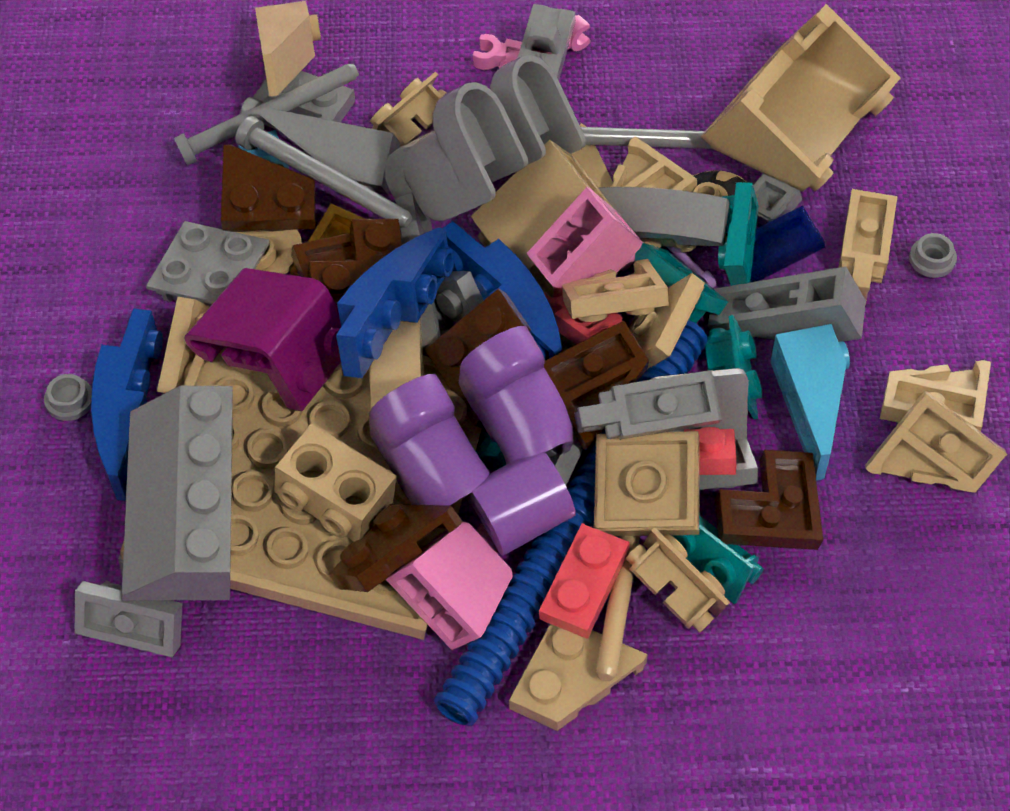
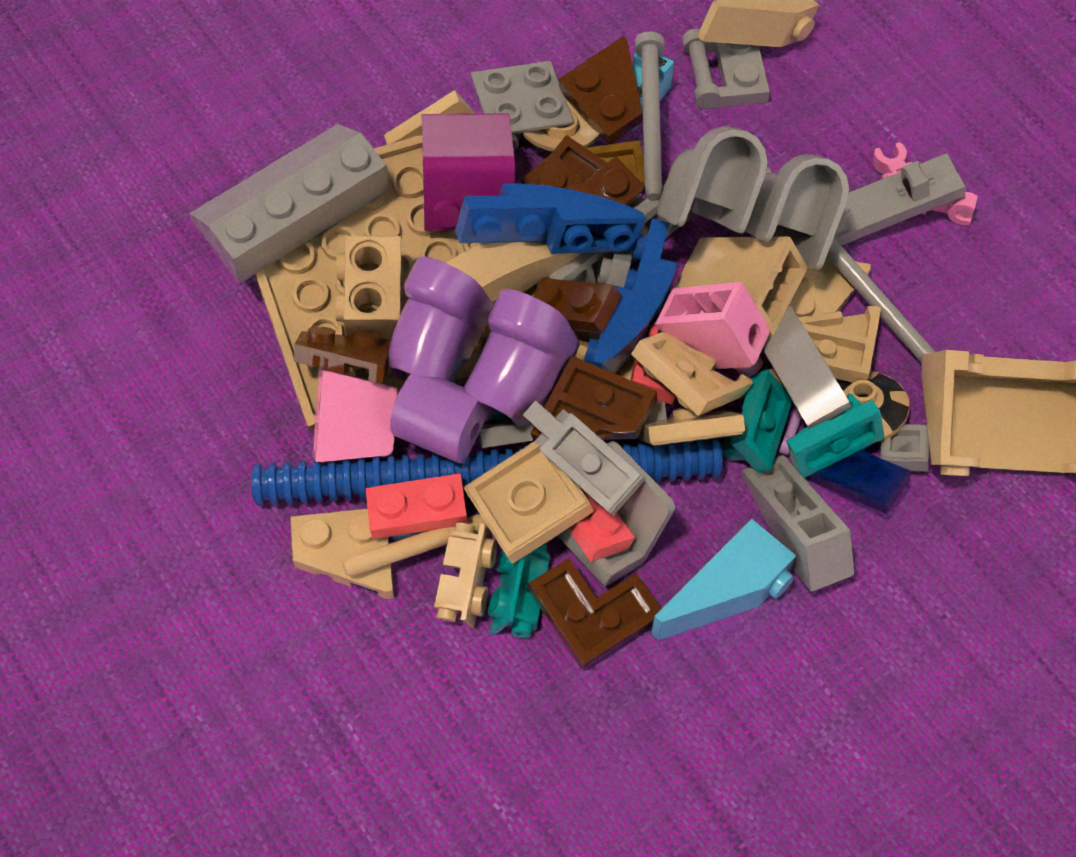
camera: 55 degrees right, 5 degrees up
(68, 397) = (352, 90): light grey plate -> none
(119, 387) = (379, 109): blue slope -> none
(134, 624) = (196, 251): light grey hinge -> none
(284, 102) = (625, 23): light grey bar -> none
(342, 146) = (689, 104): light grey slope -> none
(417, 102) = (791, 139): tan hinge -> none
(734, 350) = (721, 505): teal hinge -> none
(868, 237) = (924, 544): tan hinge -> none
(930, 247) = (959, 597): light grey plate -> none
(937, 447) = (740, 710): tan wing -> none
(959, 391) = (800, 688): tan wing -> none

